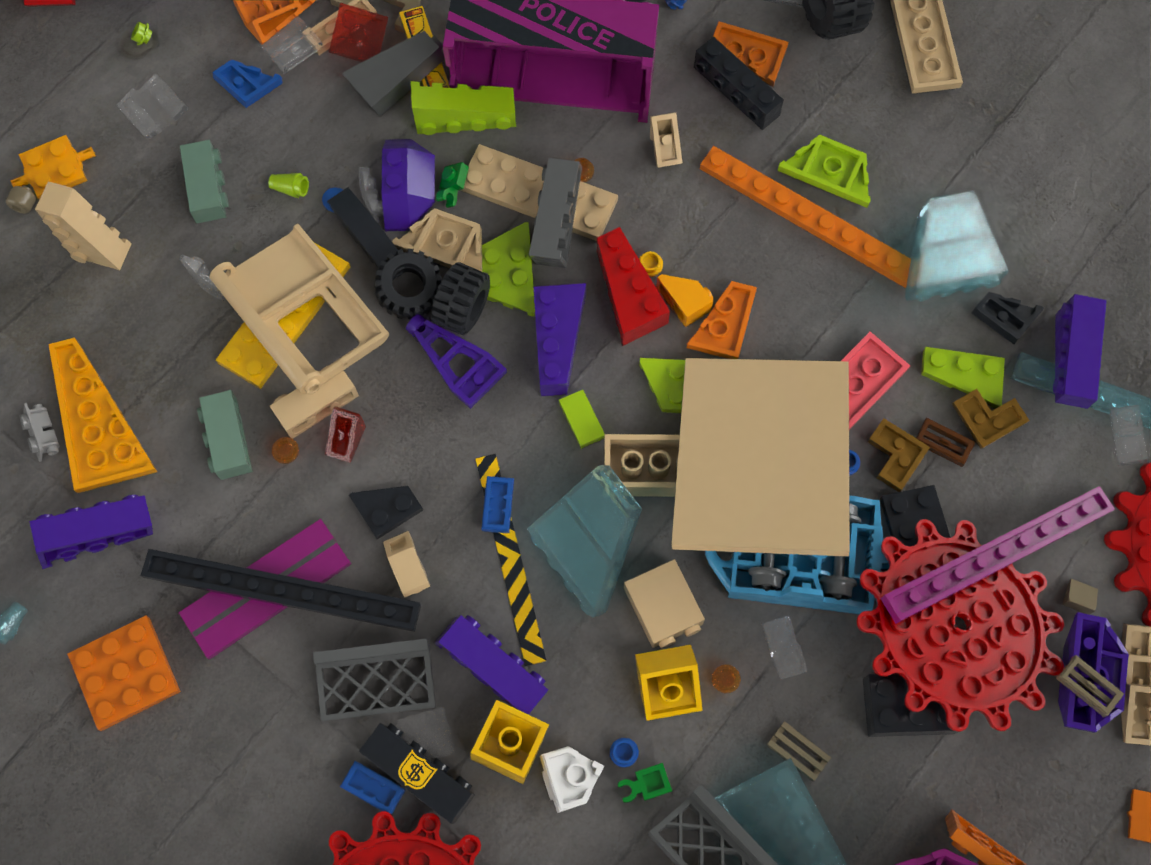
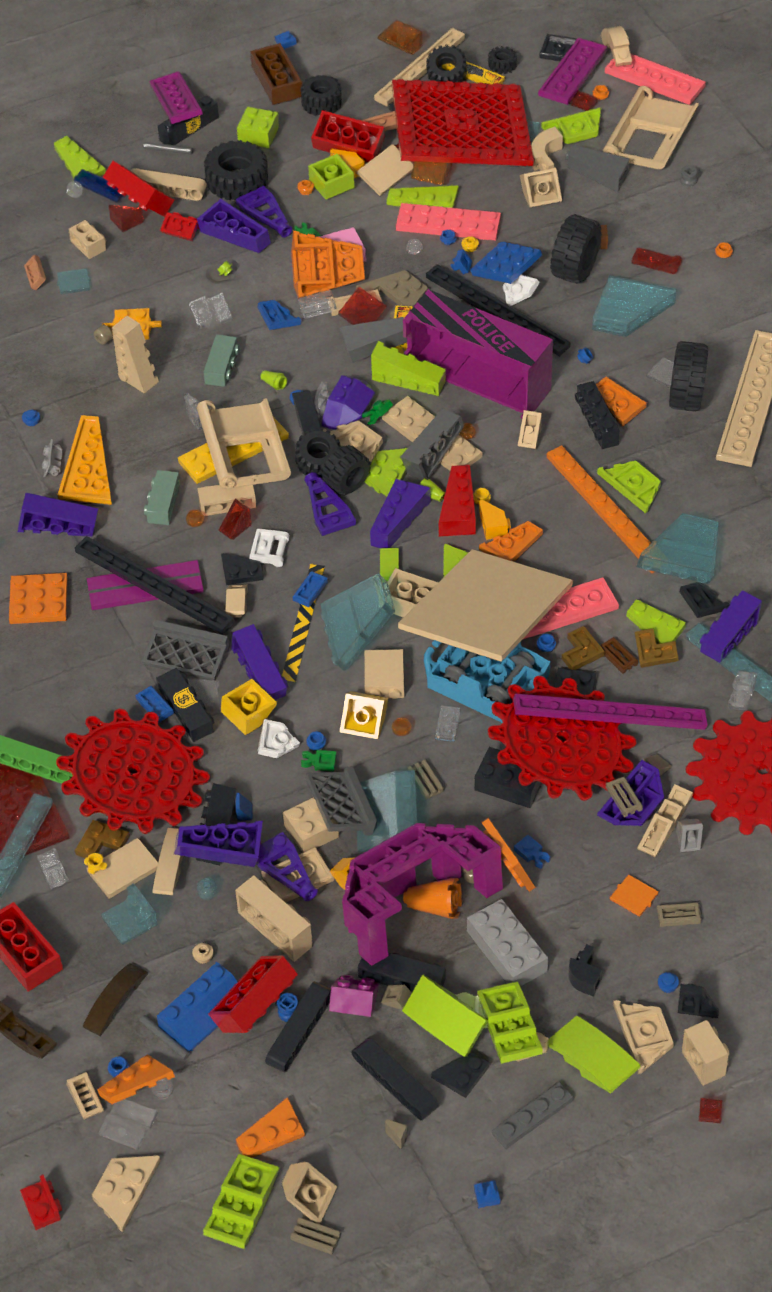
camera: 25 degrees right, 20 degrees down
(400, 457) = (263, 546): none -> white plate
(578, 276) = (436, 492): none -> lime cone
(990, 807) = (531, 850): none -> blue plate

